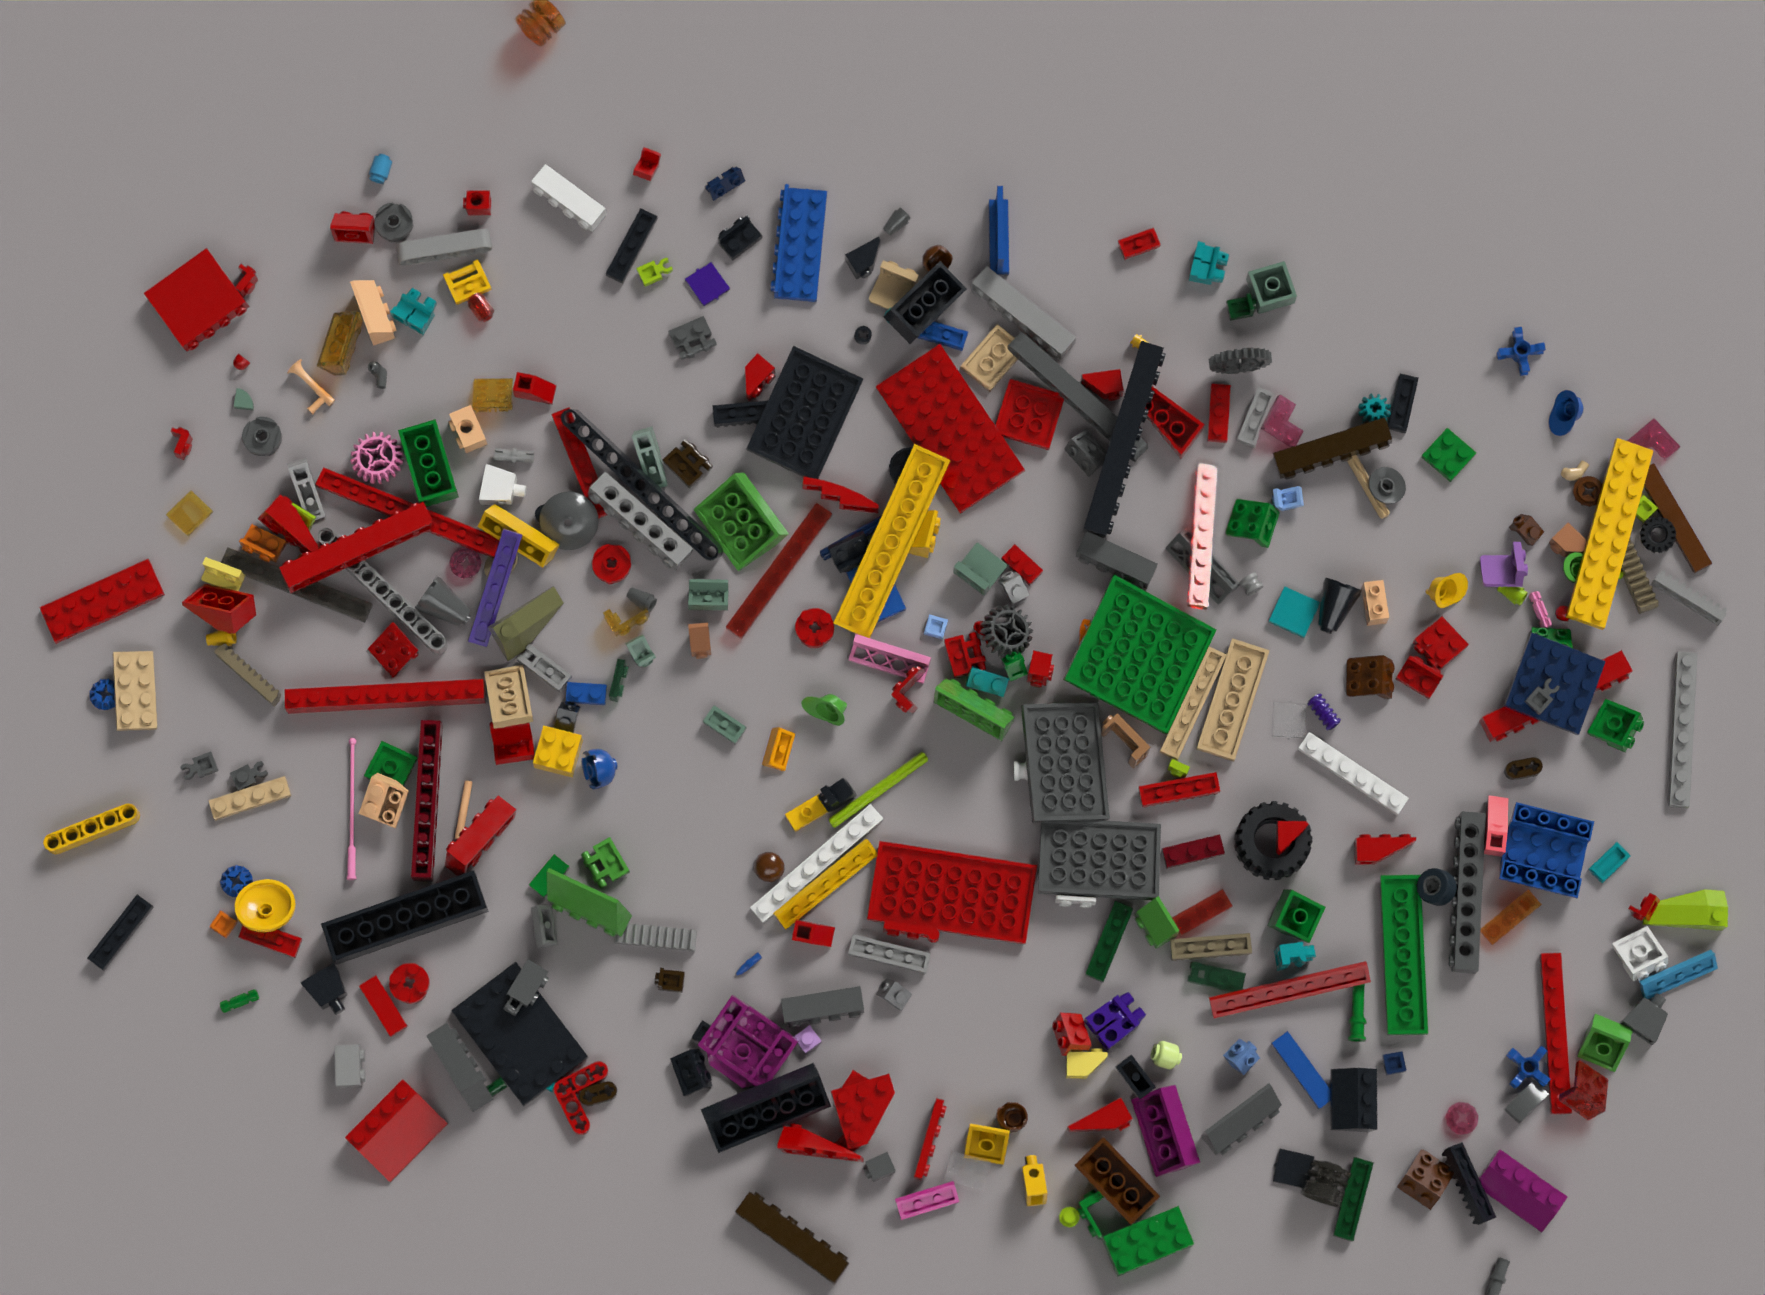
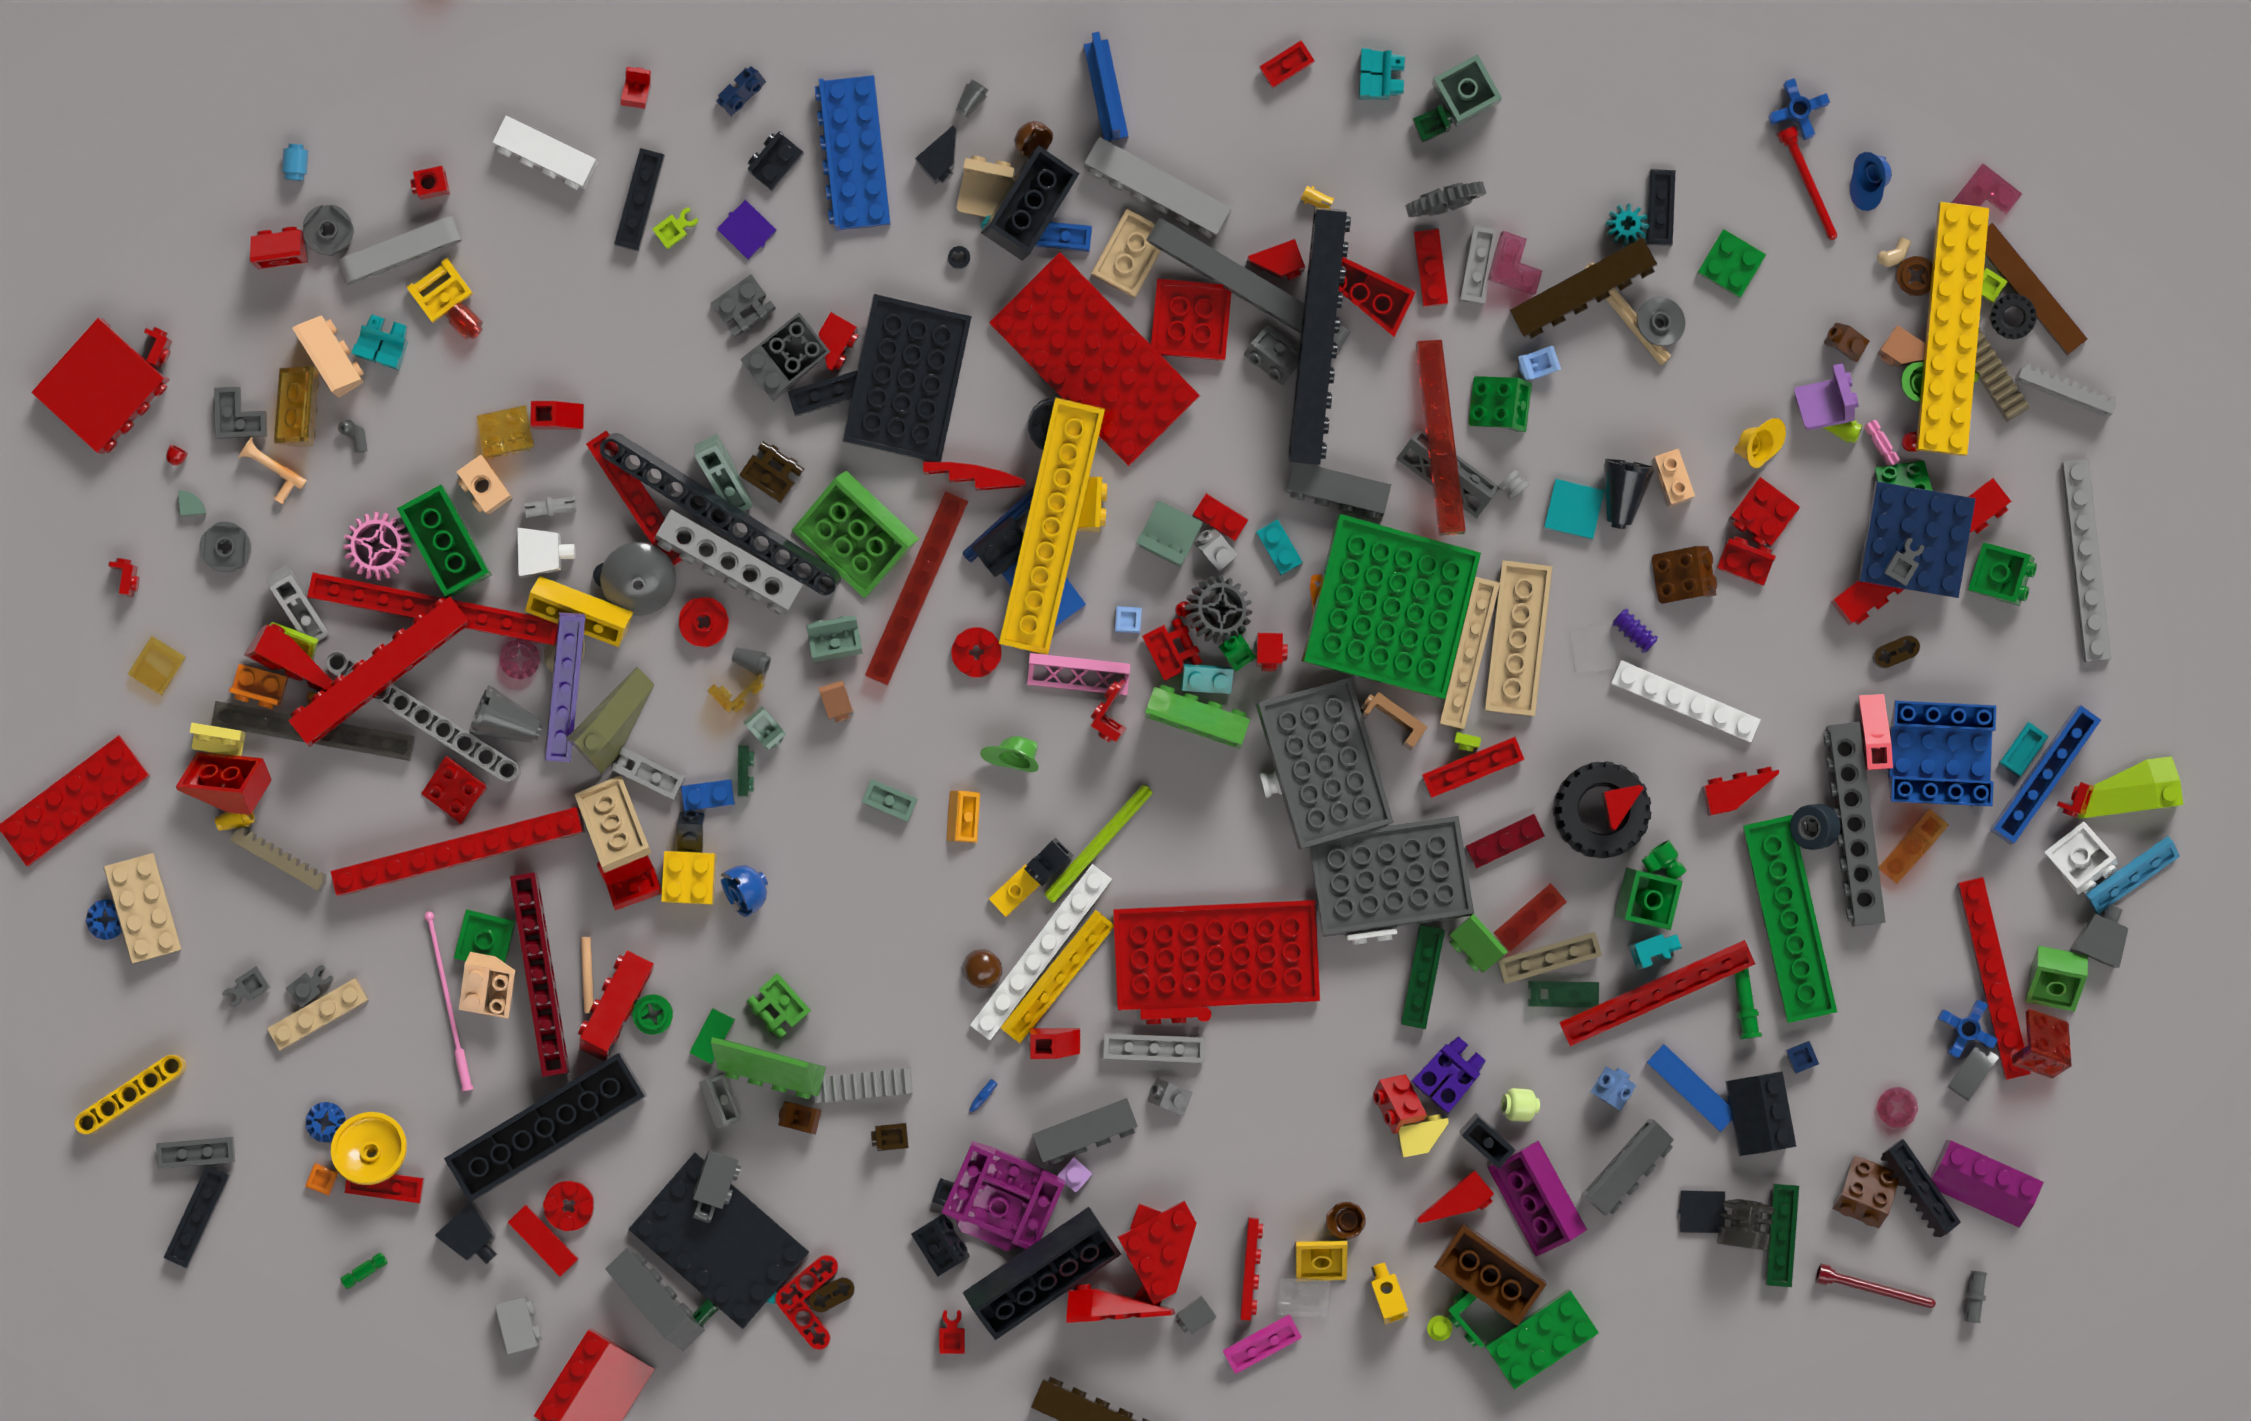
camera: 10 degrees left, 10 degrees up
(131, 883) = (195, 1152): none -> dark grey plate
(288, 344) = (231, 421): none -> dark grey plate
(499, 845) = (641, 1009): none -> green gear
(602, 950) = (799, 1117): none -> reddish brown bracket
(684, 1145) = (952, 1338): none -> red plate
(716, 379) = (785, 356): none -> dark grey slope
(1062, 595) = (1279, 547): none -> teal plate
(1315, 888) = (1664, 857): none -> green piece
(1384, 1238) = (1828, 1275): none -> dark red piece
(1509, 371) = (1790, 139): none -> red piece
(1623, 883) = (2045, 774): none -> blue brick

